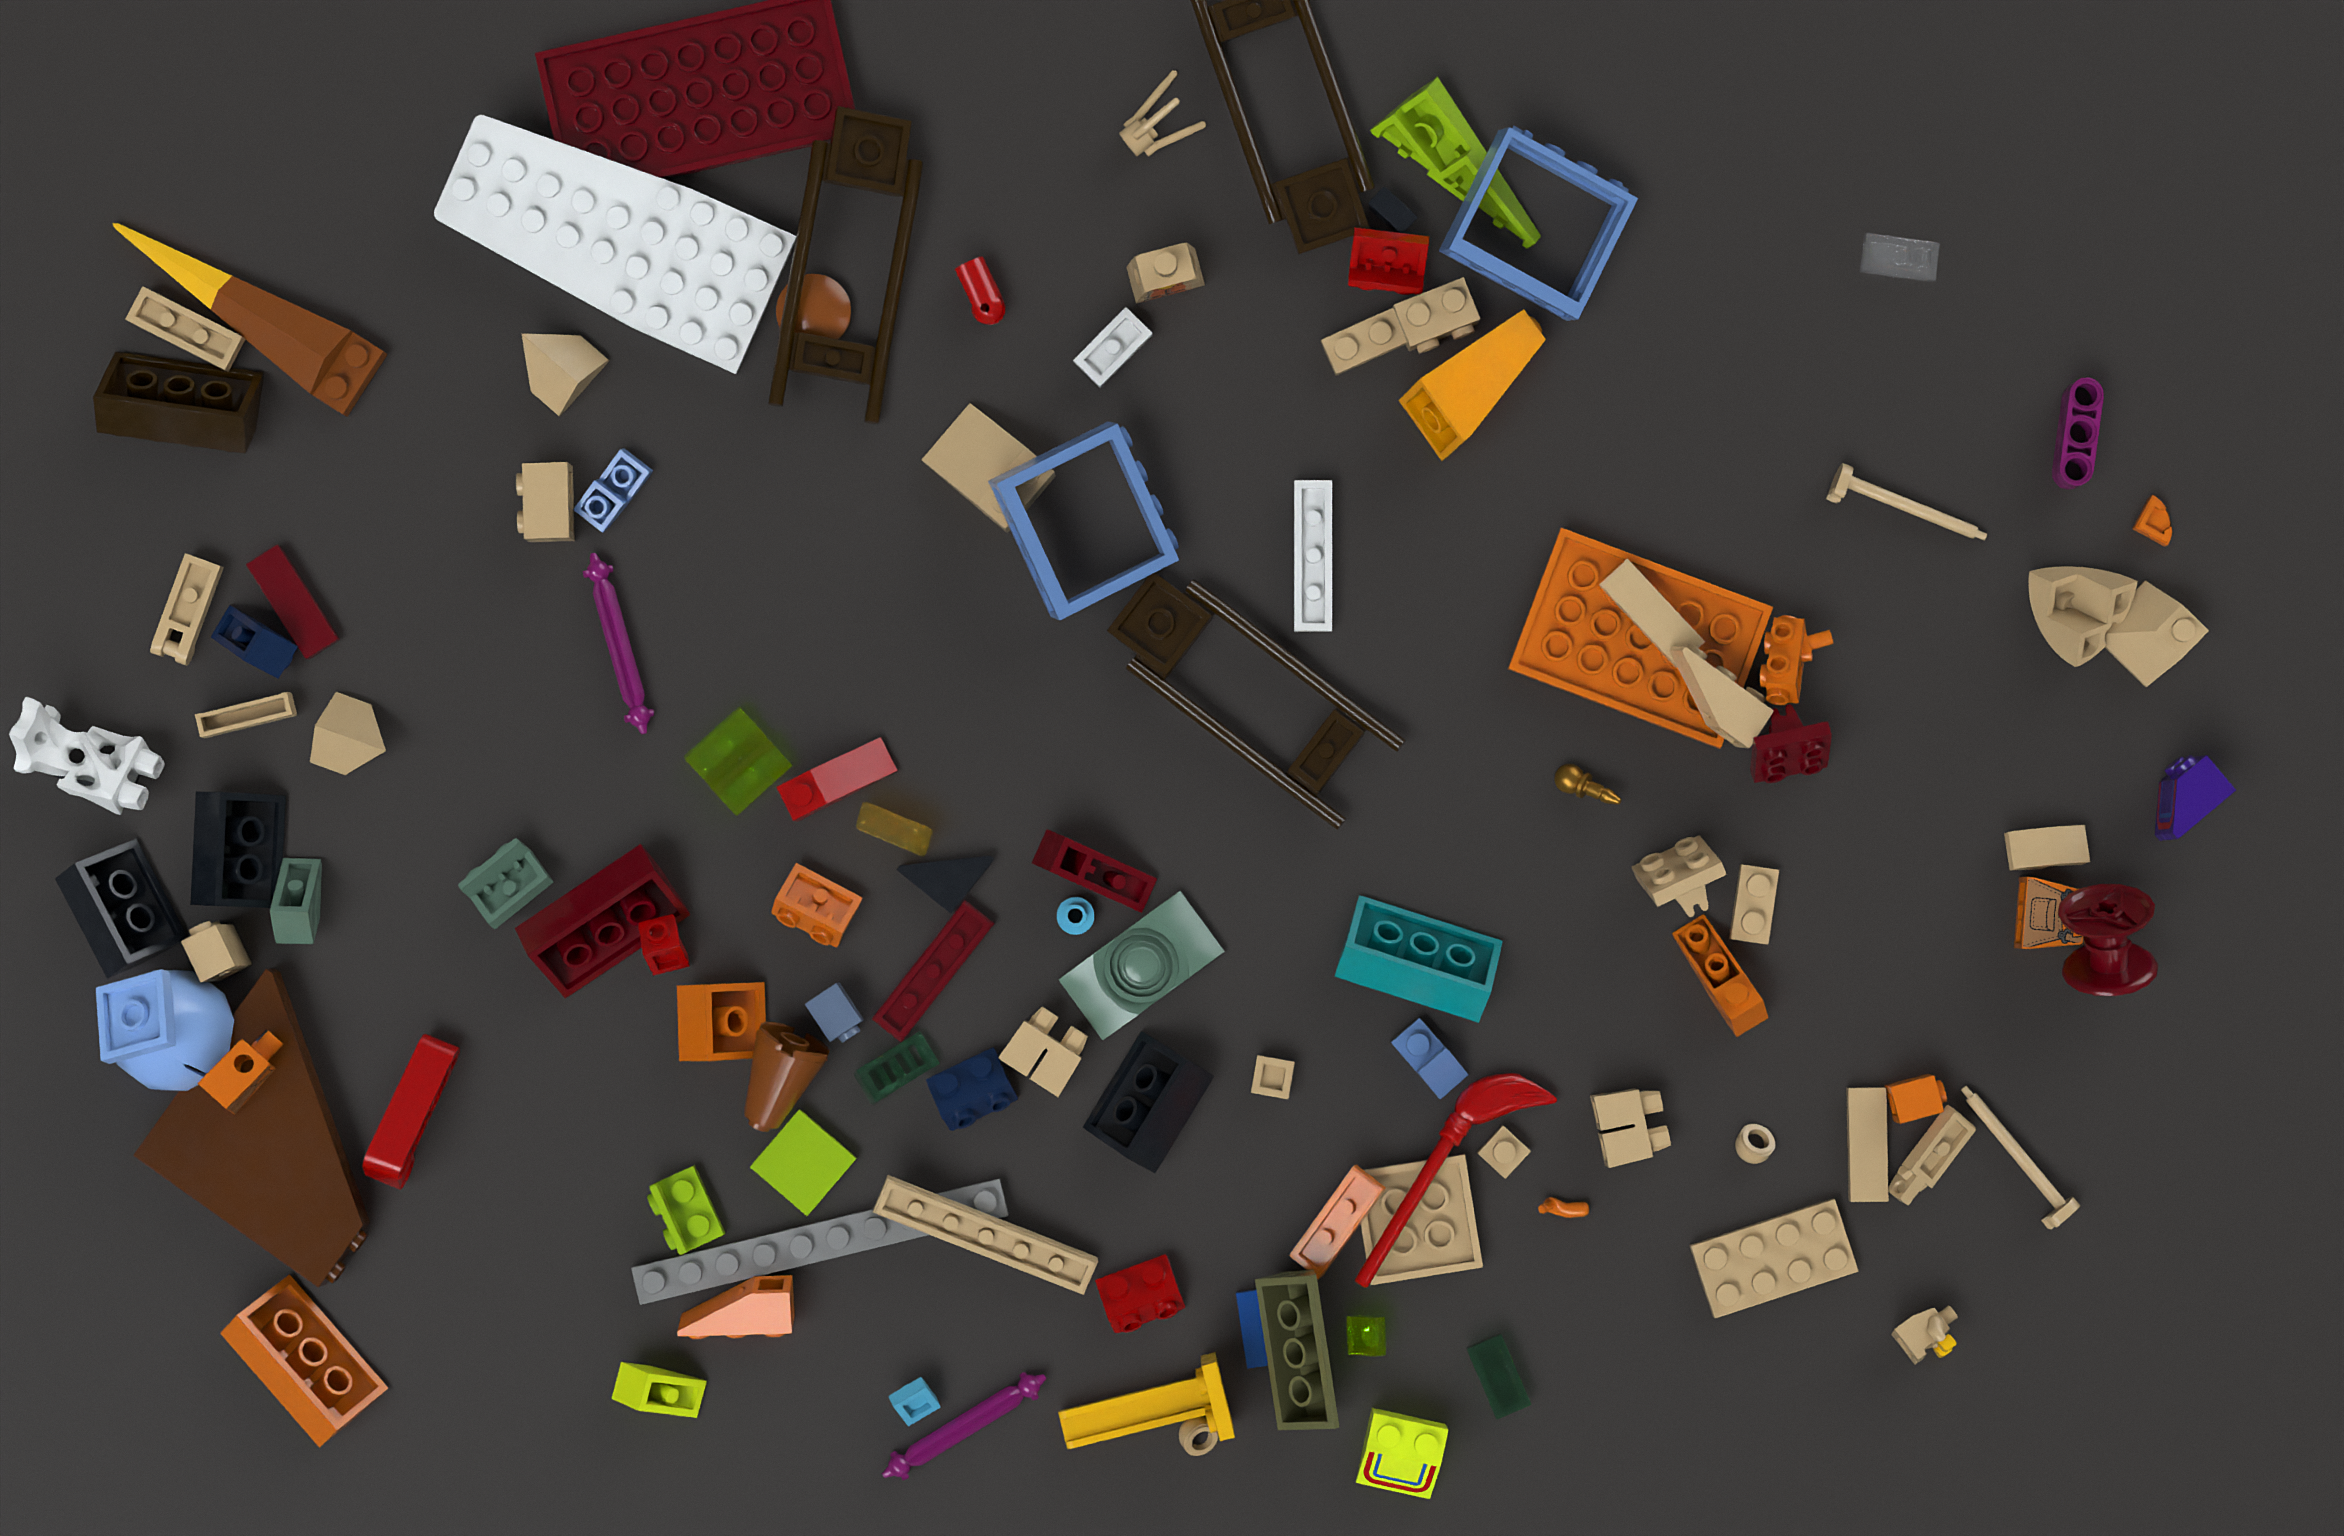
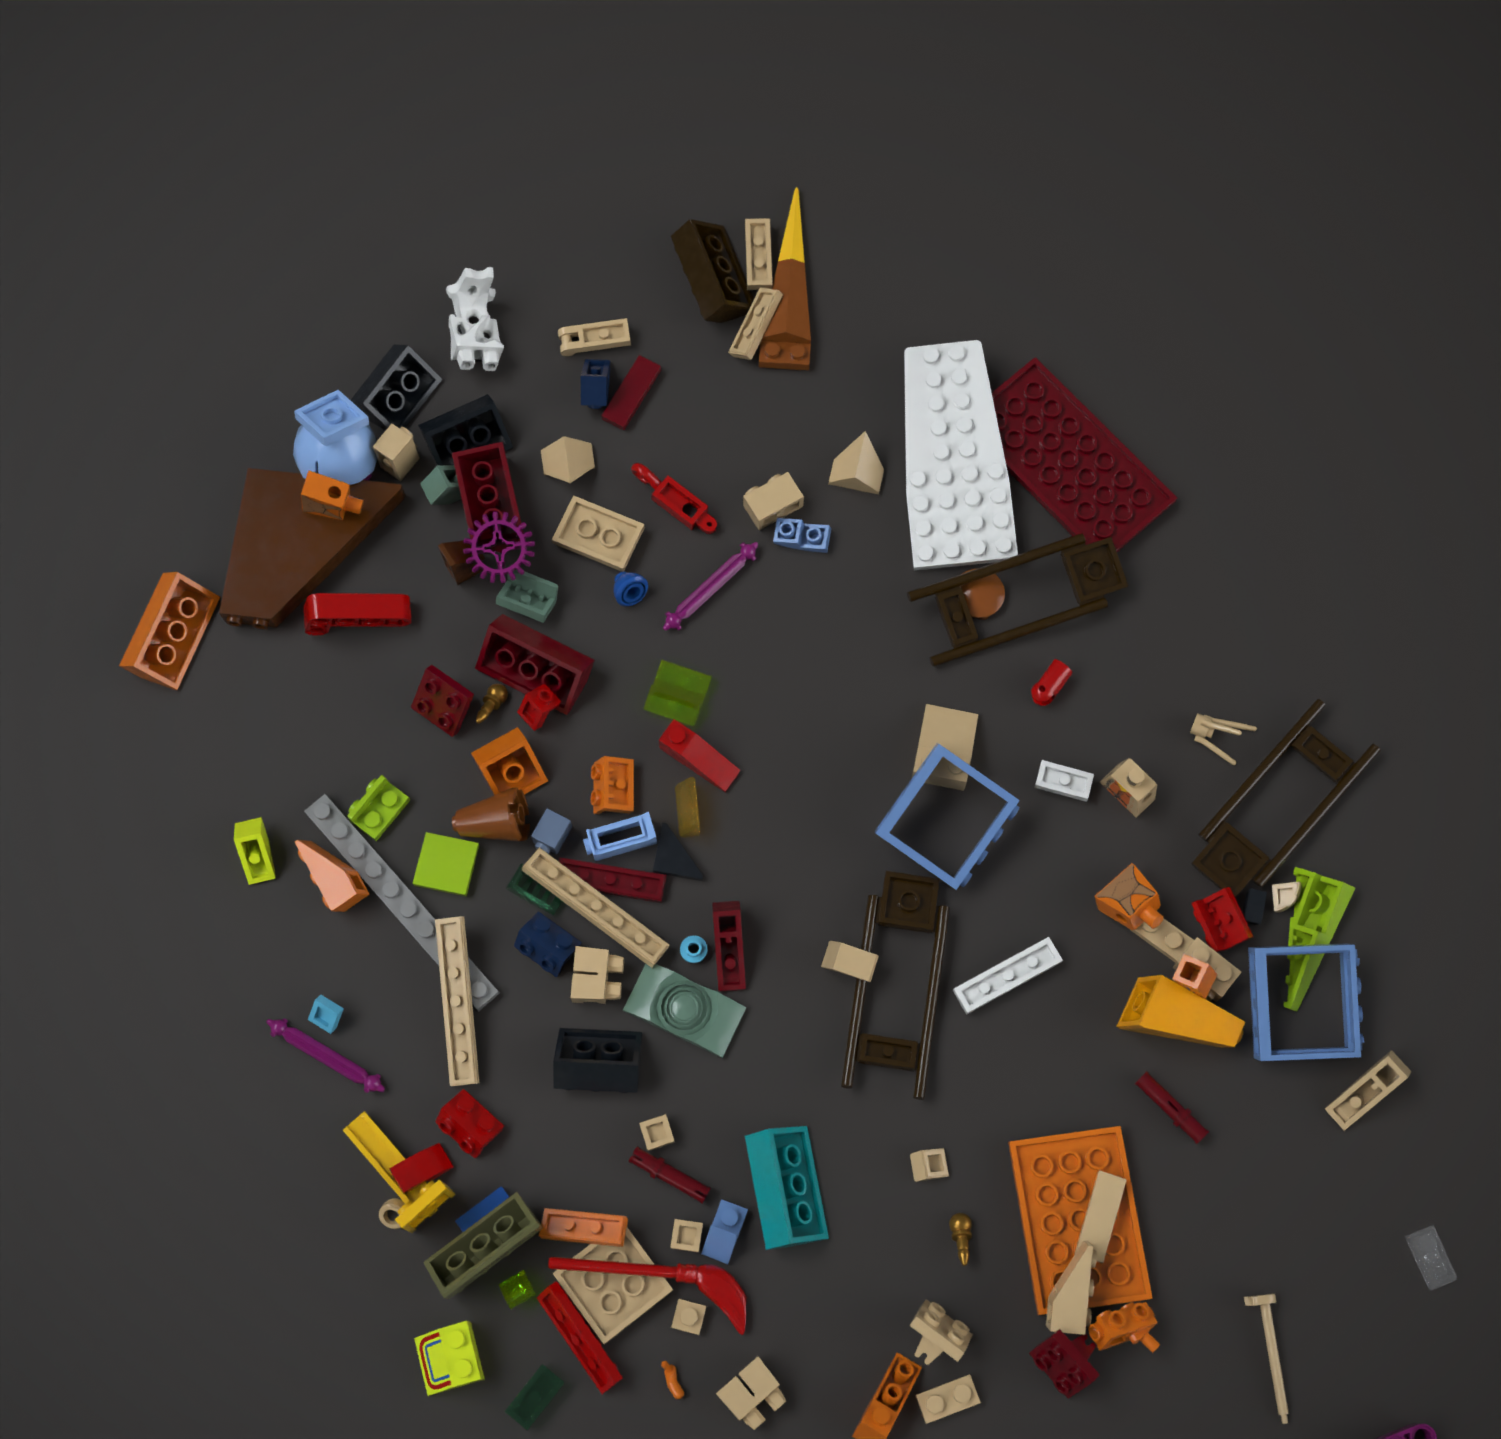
camera: 60 degrees right, 15 degrees down
(246, 715) = (549, 400): tan piece -> none
(285, 388) = (755, 323): none -> tan tile
(347, 865) = (486, 489): none -> dark red slope
(412, 941) = (455, 560): none -> reddish brown slope
(425, 905) = (502, 570): none -> magenta gear
(469, 749) = (598, 533): none -> tan plate
(474, 626) = (674, 497): none -> red piece
(566, 748) = (629, 588): none -> blue brick
(591, 1062) = (442, 700): none -> dark red plate
(616, 990) = (495, 696): none -> pearl gold bar
(879, 970) = (633, 843): none -> light blue window
(960, 1008) = (595, 907): none -> tan tile
(1164, 1377) = (421, 1168): none -> red slope
(1194, 737) = (850, 960): none -> tan slope
(1305, 356) = (1130, 900): none -> orange torso
(1329, 1088) = (669, 1174): none -> dark red pin
(1398, 165) = (1285, 895): none -> tan tile
(1411, 1105) = (686, 1235): none -> tan plate
(1442, 340) = (1195, 975): none -> orange brick
(1459, 1291) = (579, 1337): none -> red plate
(1482, 776) = (929, 1164): none -> tan slope
(1573, 453) = (1172, 1108): none -> dark red pin
(1677, 210) = (1368, 1090): none -> tan slope

